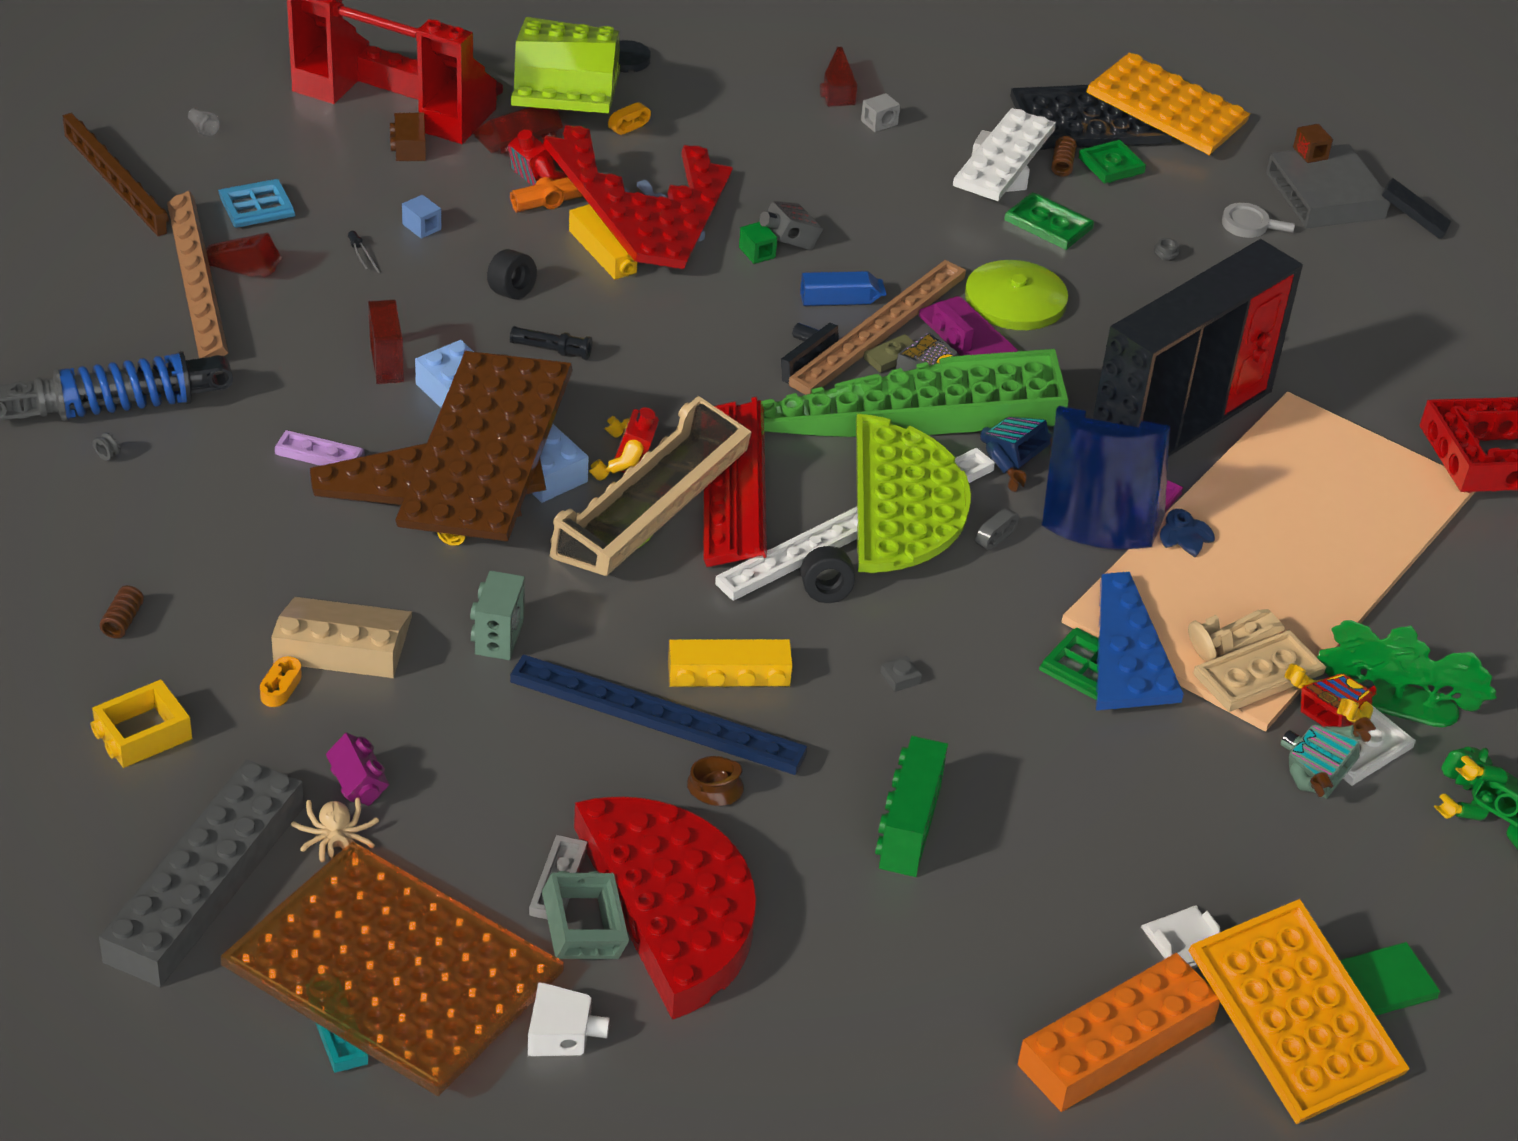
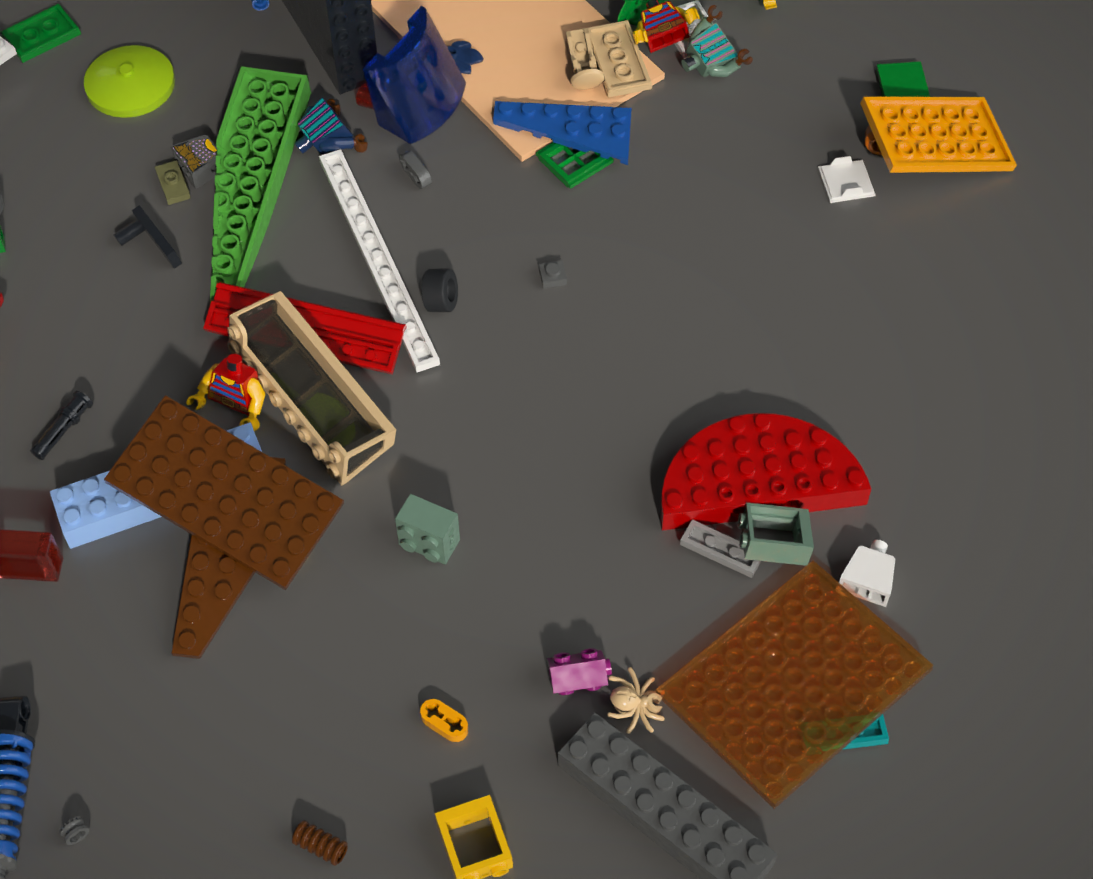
camera: 70 degrees left, 15 degrees up
(315, 449) = (142, 644): lavender tile -> none
(341, 636) = (399, 660): tan slope -> none
(659, 714) = (556, 447): dark blue plate -> none
(716, 780) = (641, 420): reddish brown piece -> none
(729, 662) = (517, 382): yellow brick -> none
(840, 288) = (77, 196): blue piece -> none
(877, 328) = (139, 183): medium nougat plate -> none
(907, 496) = (367, 212): lime plate -> none
(911, 806) = (710, 296): green brick -> none
(964, 328) = (167, 125): magenta bracket -> none
(1118, 1031) = (933, 238): orange brick -> none

